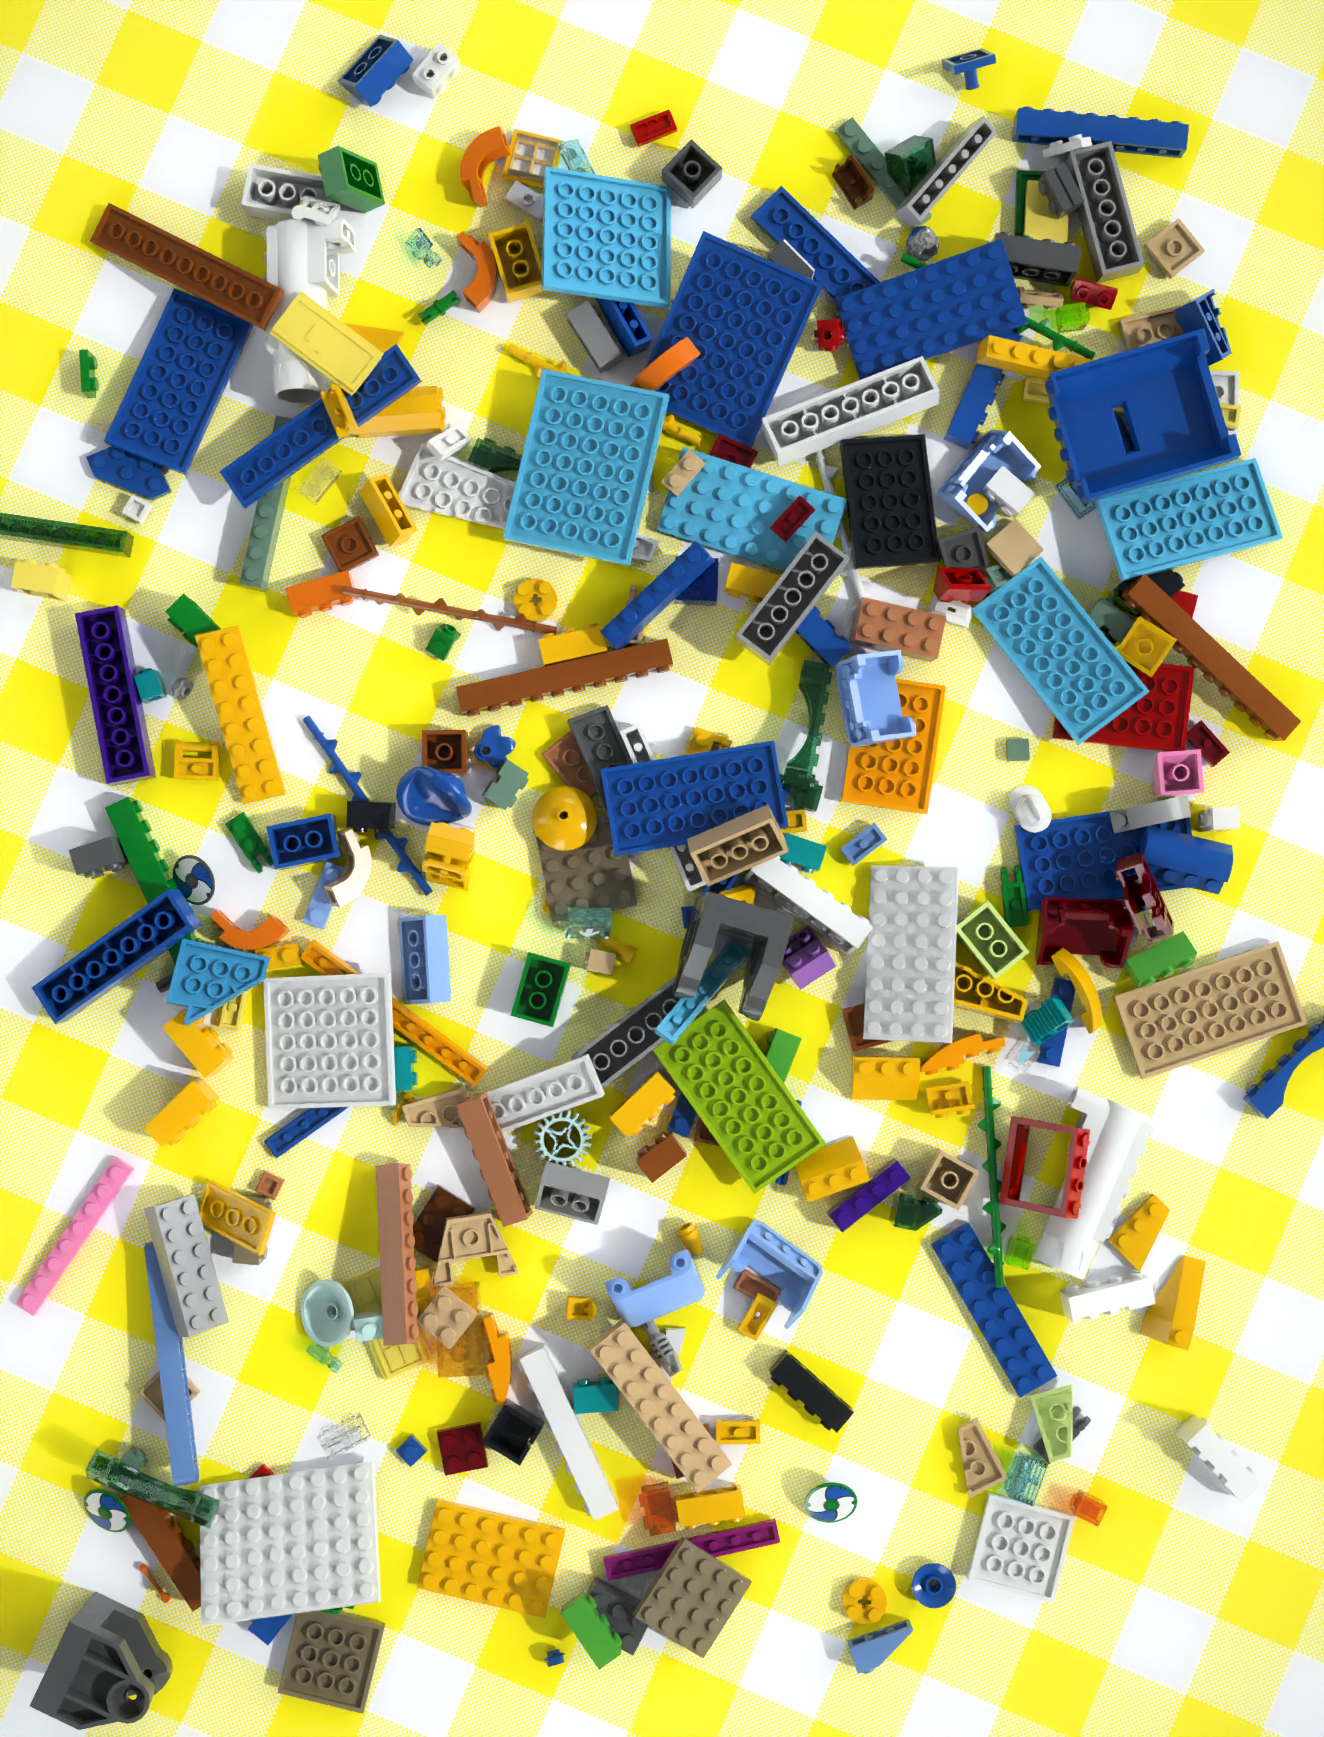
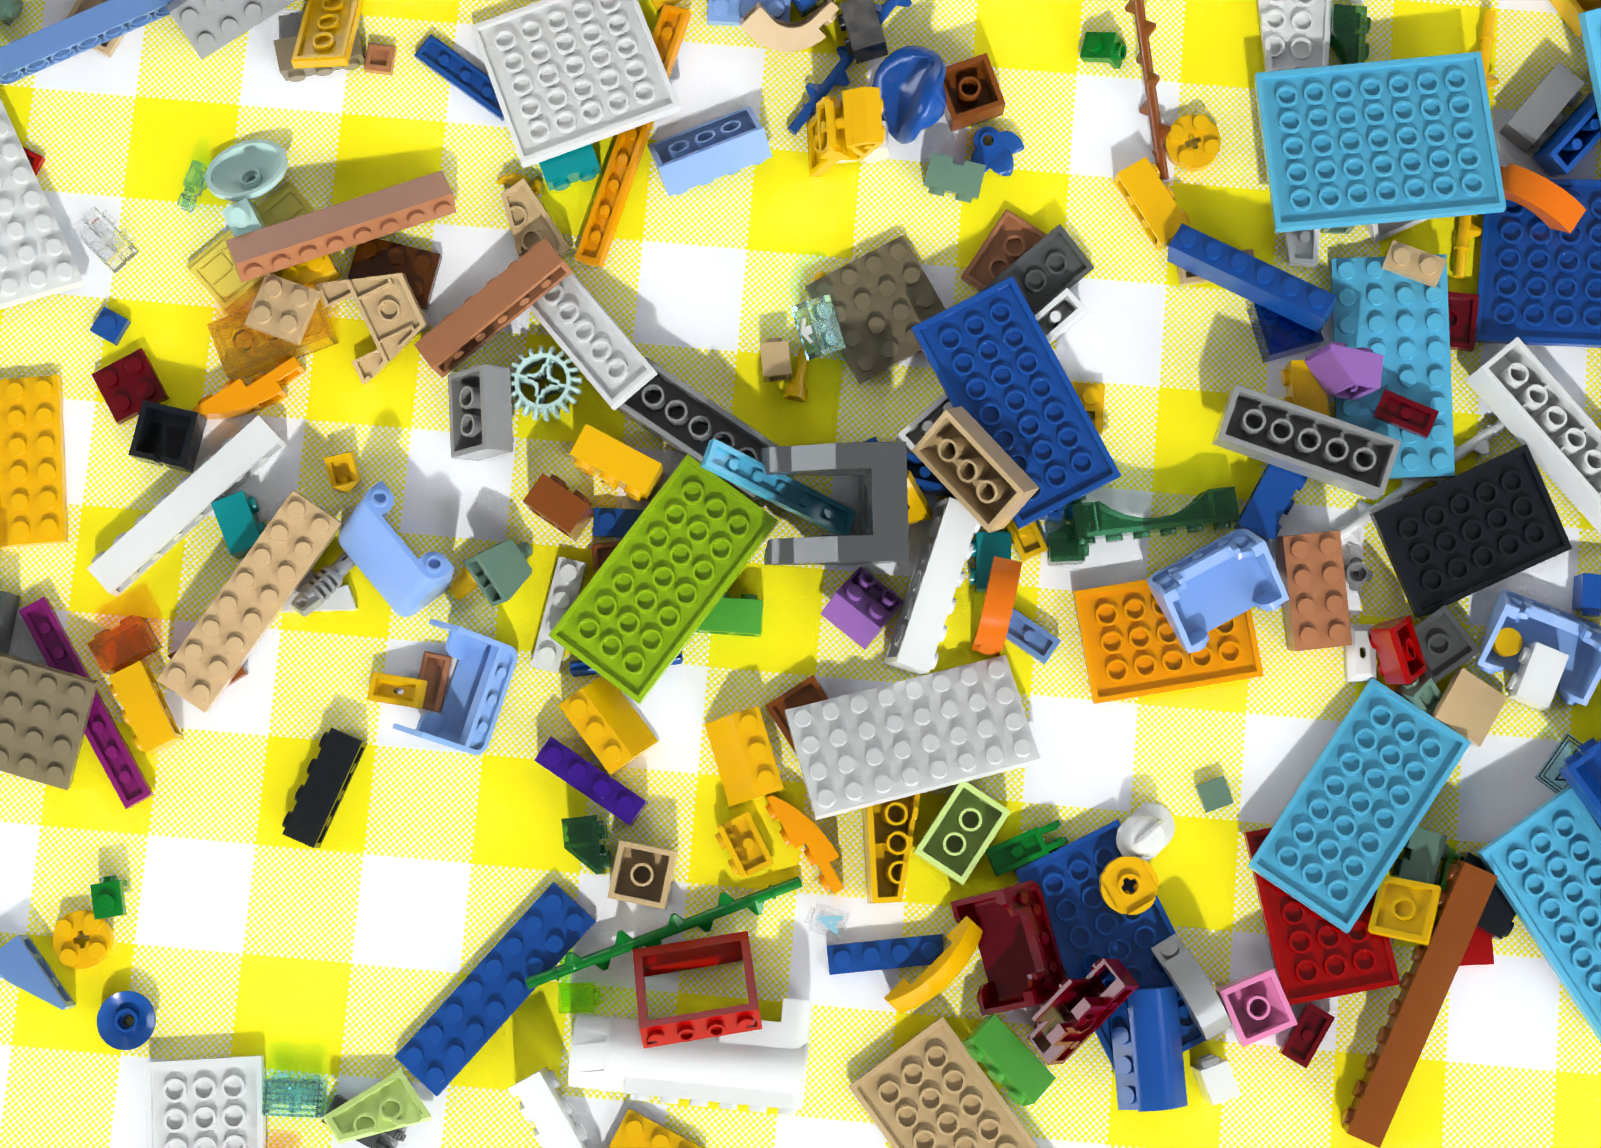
camera: 75 degrees right, 5 degrees down
(541, 989) = (718, 298): green brick -> none
(564, 677) = (1111, 206): dark orange brick -> none
(569, 832) = (932, 276): yellow dish -> none
(693, 1213) = (500, 569): none -> sand green torso
(727, 1174) = (563, 592): none -> white plate
(737, 1432) = (247, 713): yellow plate -> none
(749, 551) = (1345, 370): none -> medium lavender slope
(831, 1502) = (193, 856): shield -> none
(837, 860) = (997, 606): none -> orange arch
(841, 1573) = (108, 897): none -> green bracket
(895, 588) = (1364, 574): none -> light grey plate
(979, 1458) = (301, 1030): tan wing -> none
(1046, 1021) = (882, 936): teal brick -> none
(1071, 823) = (1144, 890): none -> yellow plate

